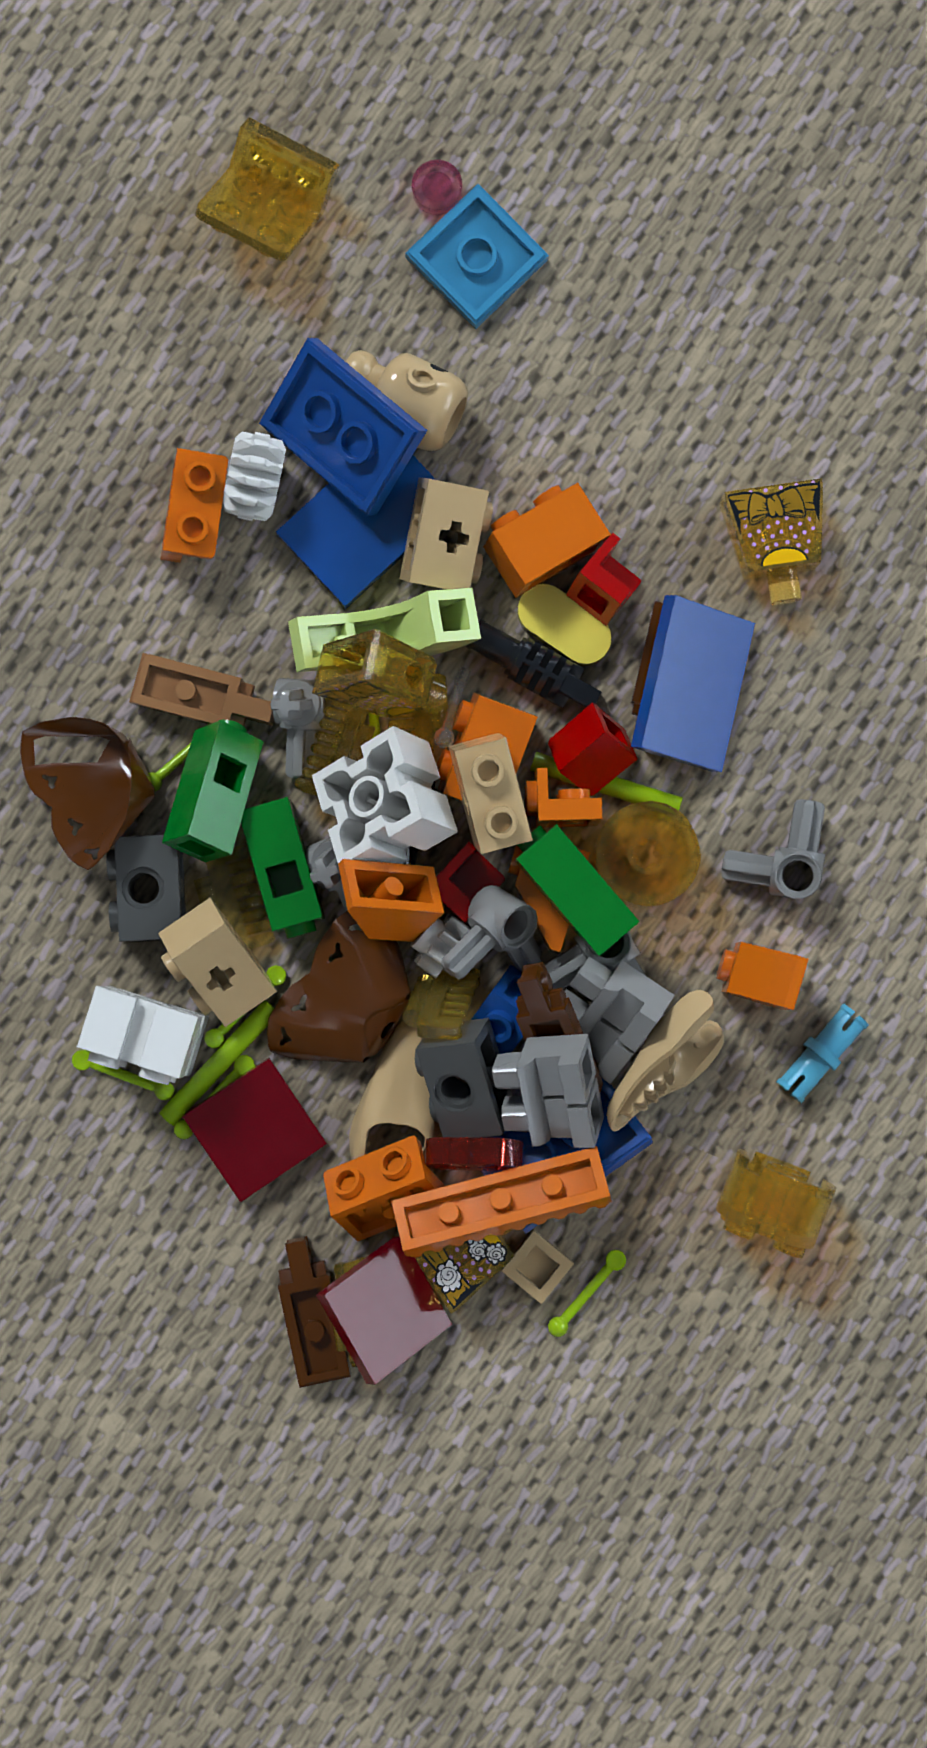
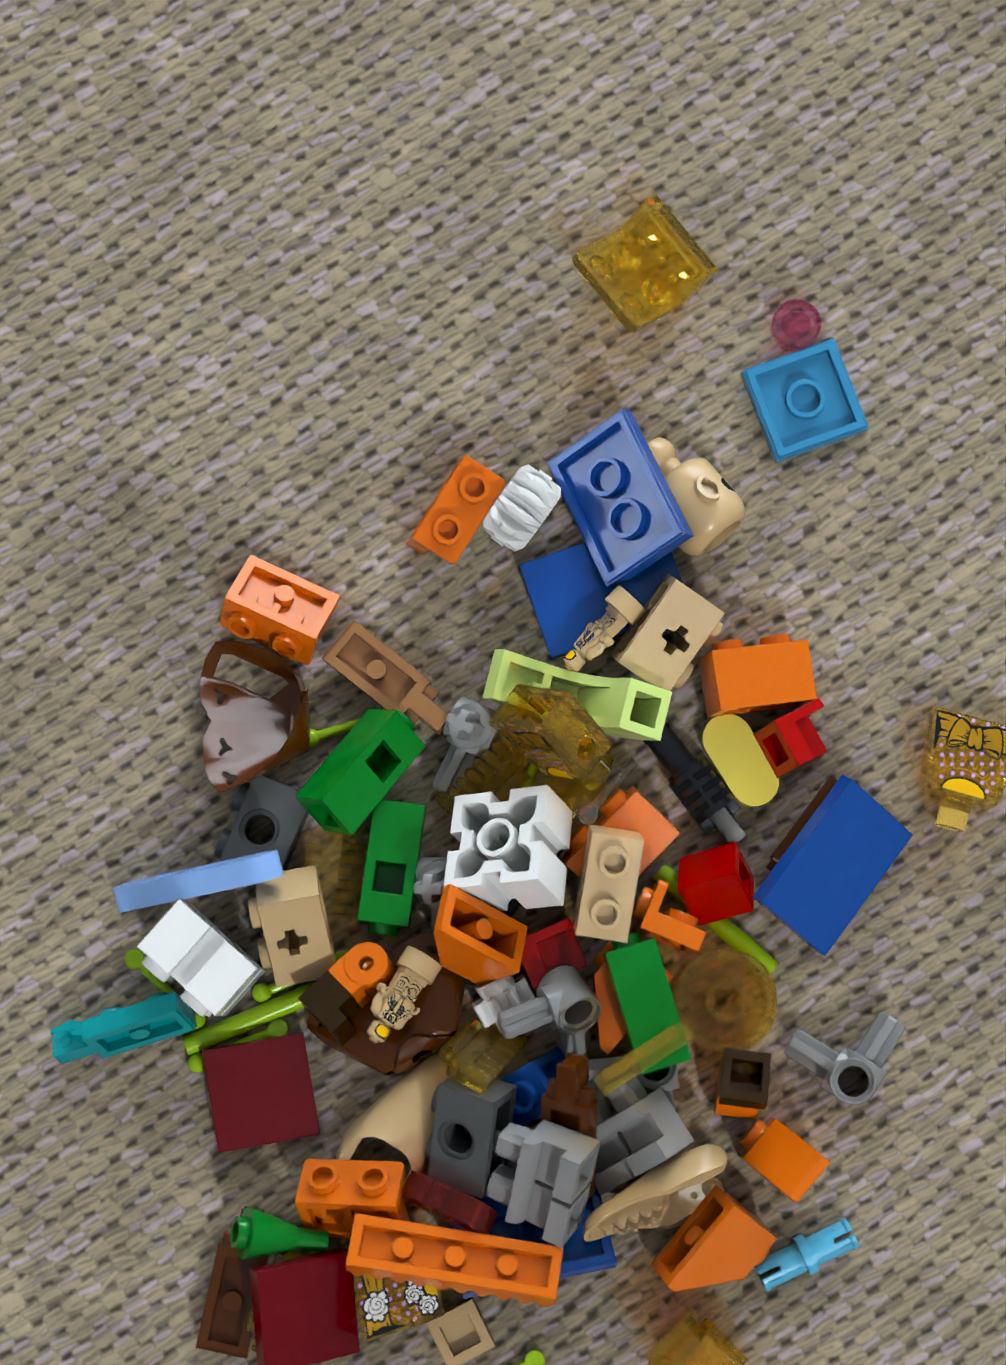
camera: 20 degrees right, 5 degrees down
(67, 675) = (278, 610): none -> orange bracket
(101, 1128) = (124, 1028): none -> teal hinge
(107, 961) = (198, 881): none -> light blue beam
(292, 997) = (348, 988): none -> leg
(316, 1257) = (263, 1234): none -> green cone
(341, 992) = (394, 1003): none -> tan piece
(391, 532) = (621, 610): none -> tan piece
(593, 939) = (642, 1057): none -> clear yellow tile
(697, 926) = (742, 1087): none -> dark brown leg
(734, 1082) = (714, 1244): none -> orange slope

